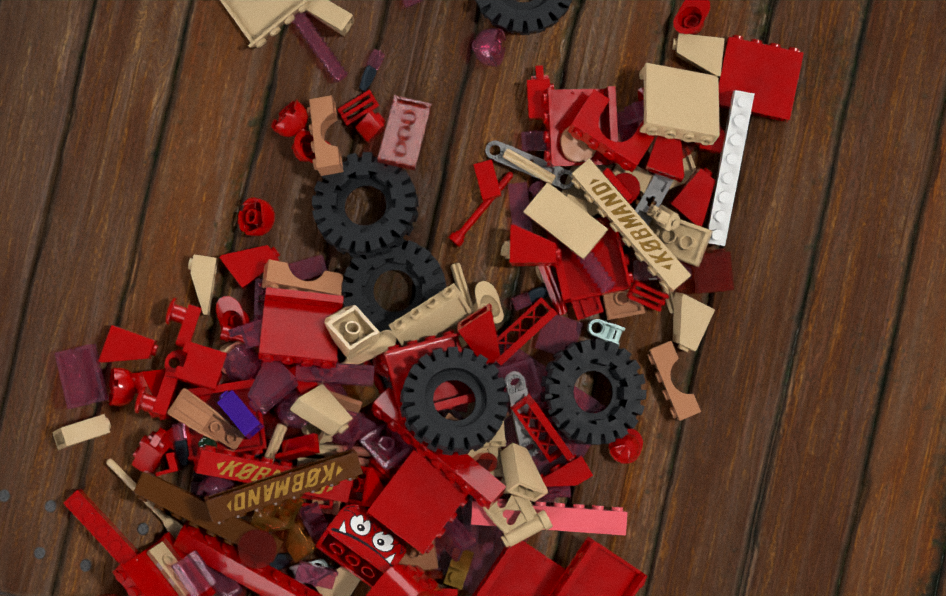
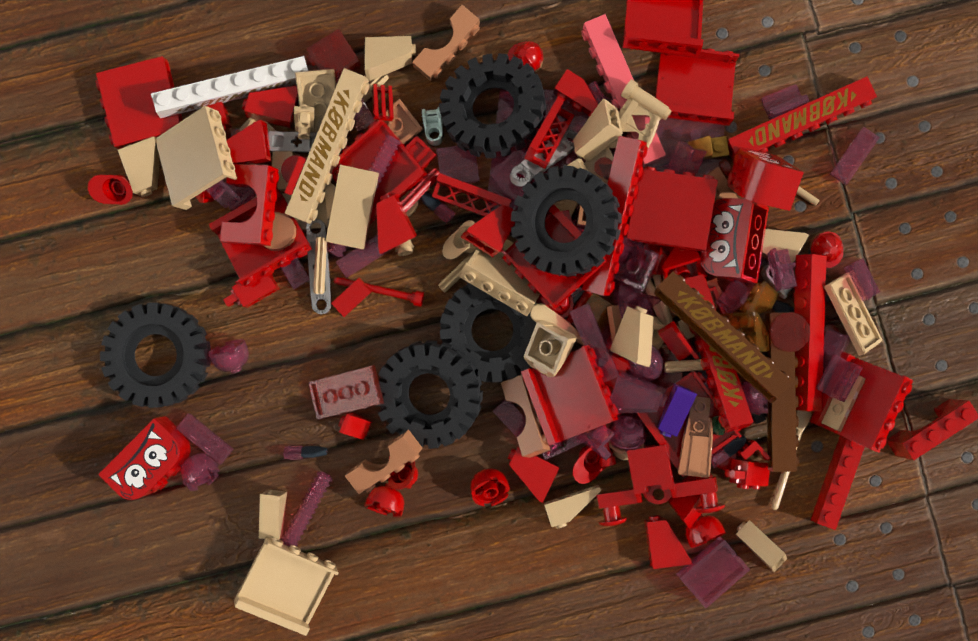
camera: 110 degrees left, 0 degrees up
(354, 101) = (358, 454): red tile -> none

